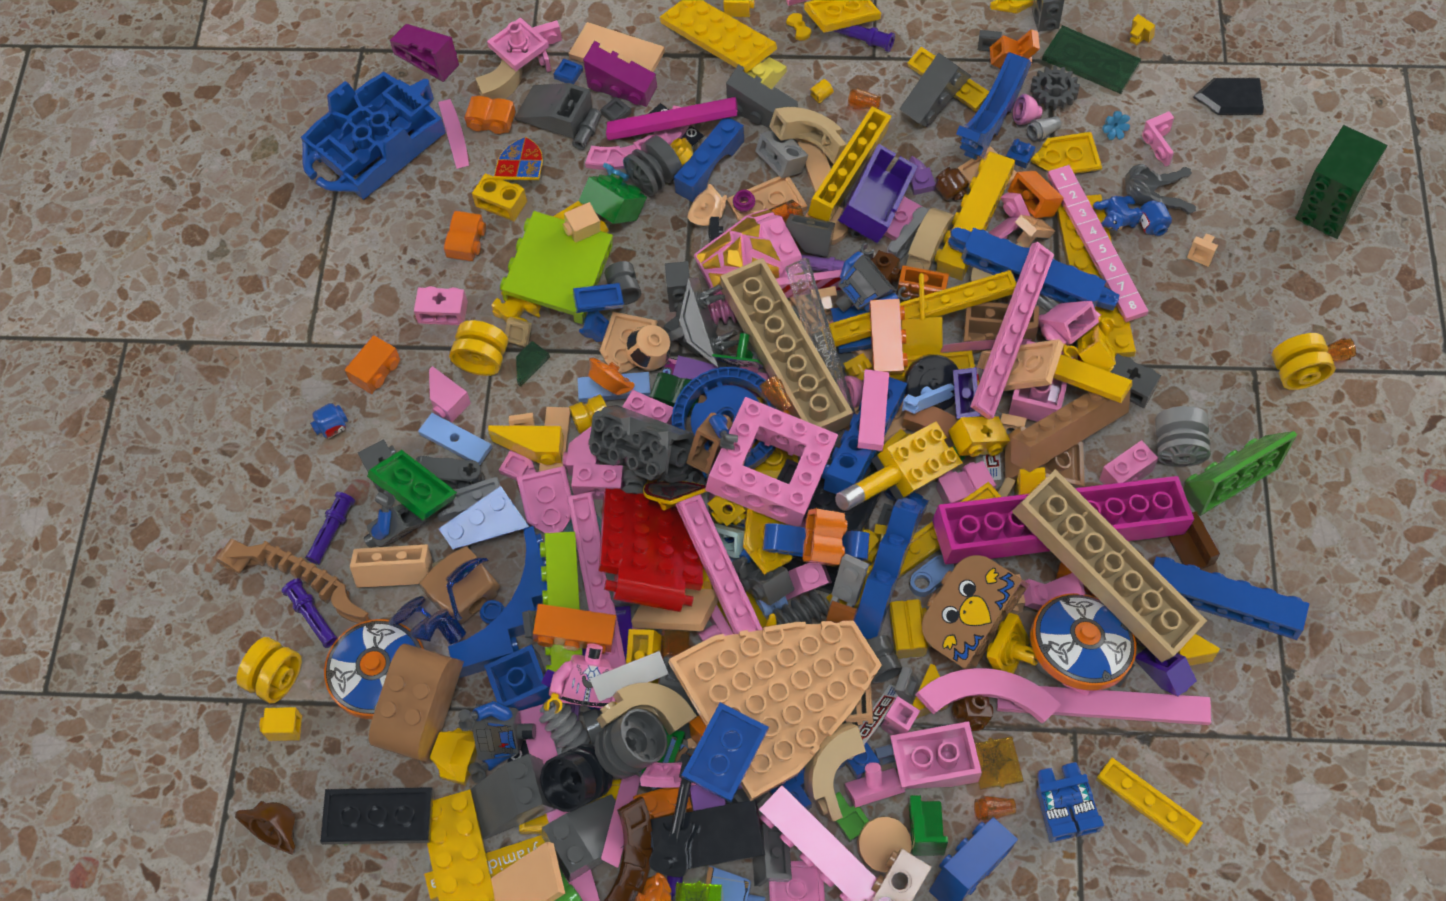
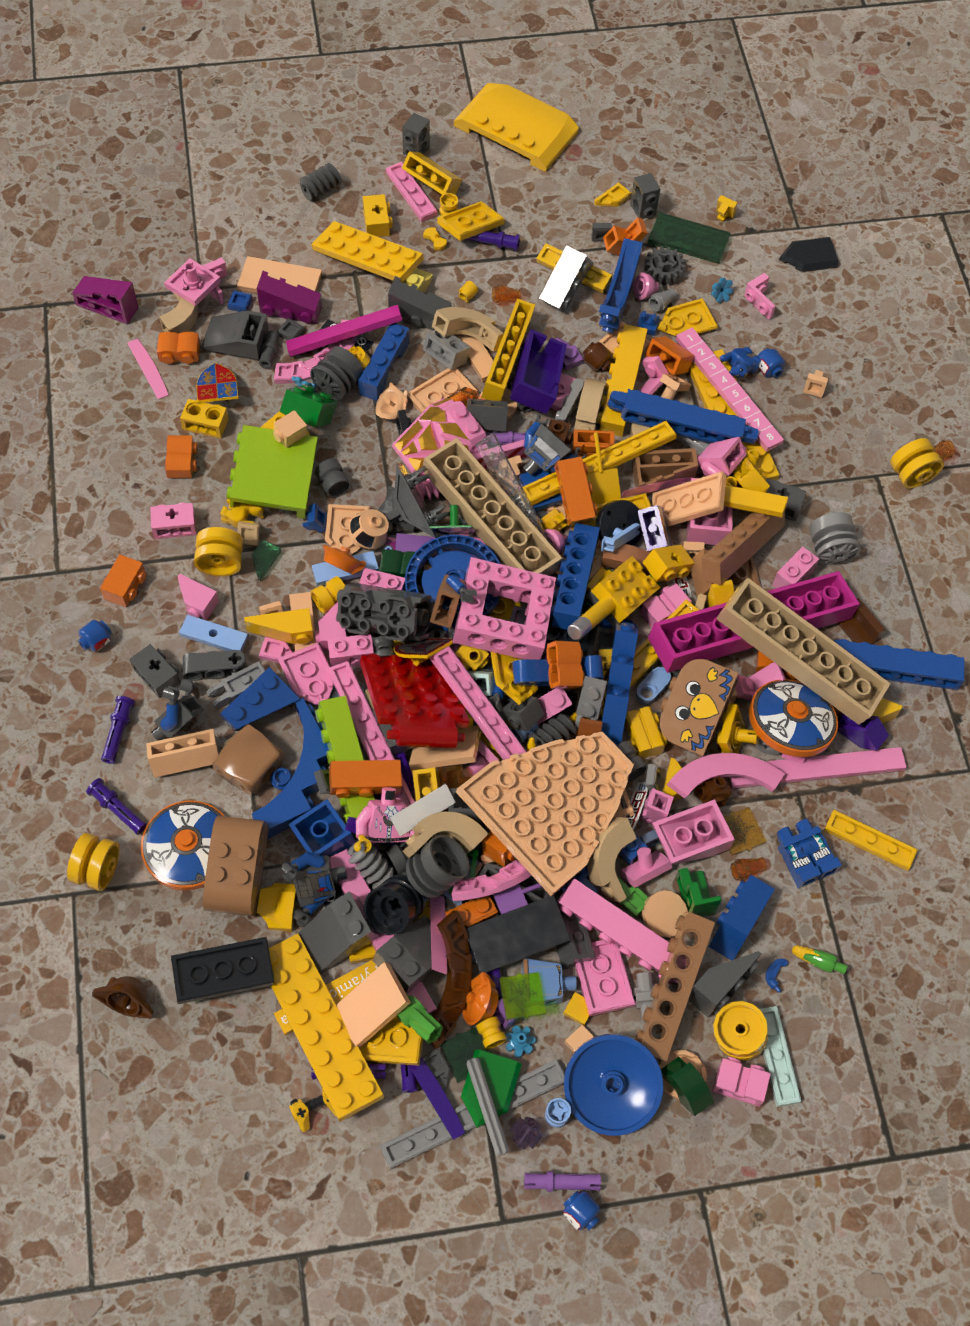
camera: 20 degrees left, 0 degrees up
(237, 556) = (37, 767): medium nougat piece -> none
(281, 724) = (113, 907): yellow brick -> none
(364, 123) = (66, 368): blue piece -> none
(412, 484) = (188, 677): green plate -> none
(447, 624) = (246, 792): clear blue plant -> none
(598, 298) = (316, 493): blue tile -> none
(671, 854) = (490, 952): black piece -> none
(676, 280) = (383, 472): dark grey brick -> none
(725, 752) = (523, 858): blue plate -> none
(744, 195) = (423, 389): magenta plate -> none
(775, 392) = (492, 550): clear orange cone -> none
(873, 410) = (579, 553): bright pink tile -> none
(1012, 331) = (679, 471): bright pink tile -> none
(1143, 181) = (754, 336): dark grey hair -> none
(1237, 471) = (885, 559): bright green slope -> none
(1340, 181) = (917, 312): dark green piece -> none

